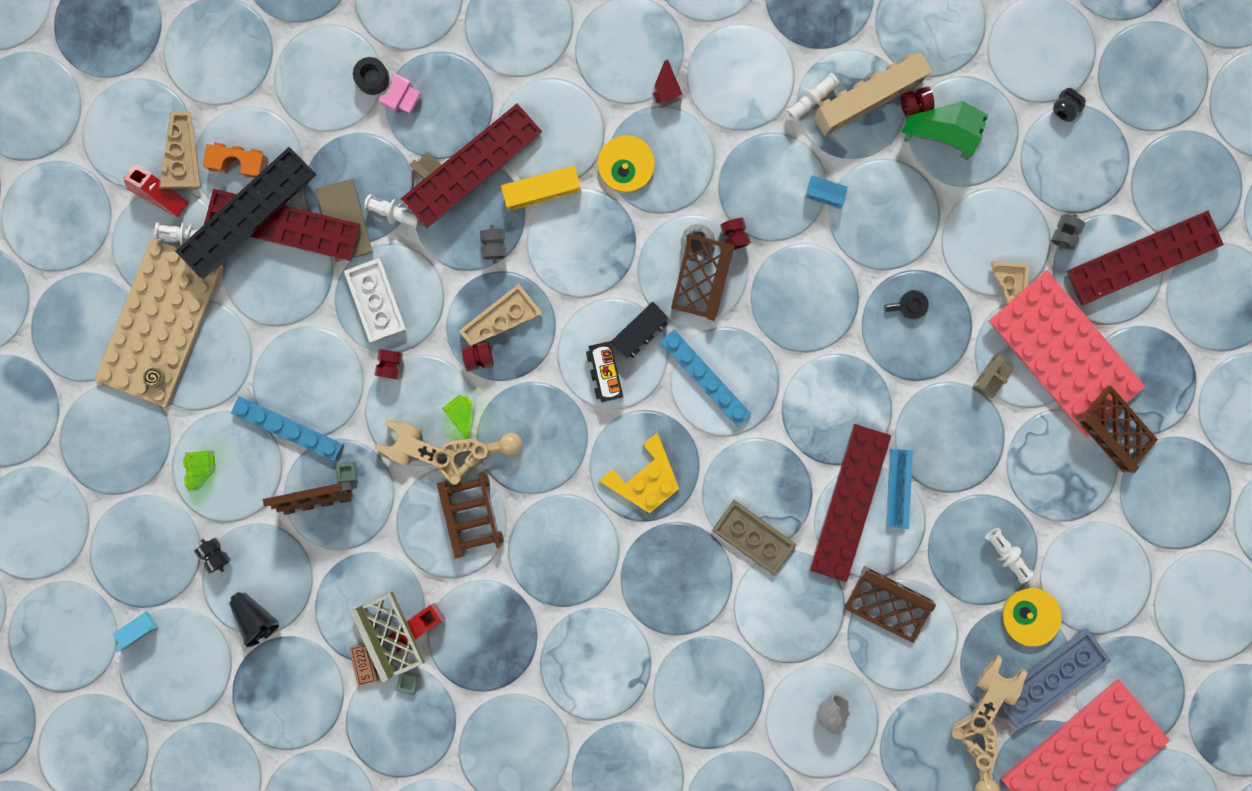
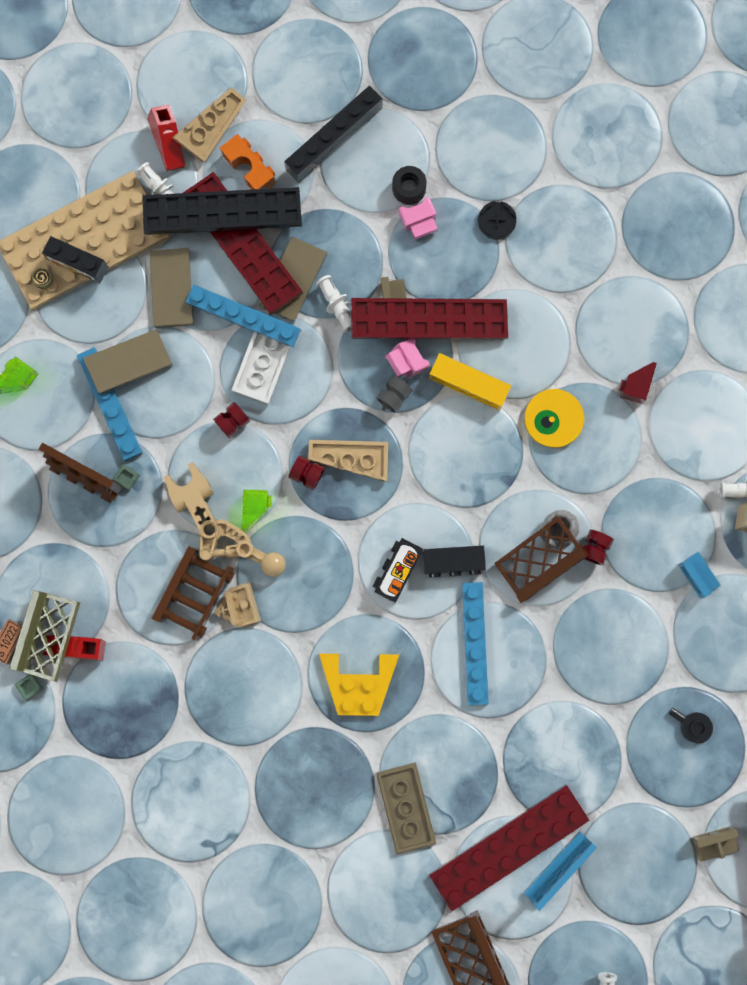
camera: 40 degrees right, 5 degrees down
(166, 342) = (75, 259): none -> black brick
(258, 303) = (171, 287): none -> dark tan tile
(273, 386) = (127, 361): none -> dark tan tile
(283, 54) = (357, 112): none -> black arch
(330, 279) = (243, 316): none -> dark azure plate
(459, 48) = (497, 220): none -> black tile
(481, 210) = (406, 359): none -> bright pink piece
(511, 495) = (239, 606): none -> tan slope

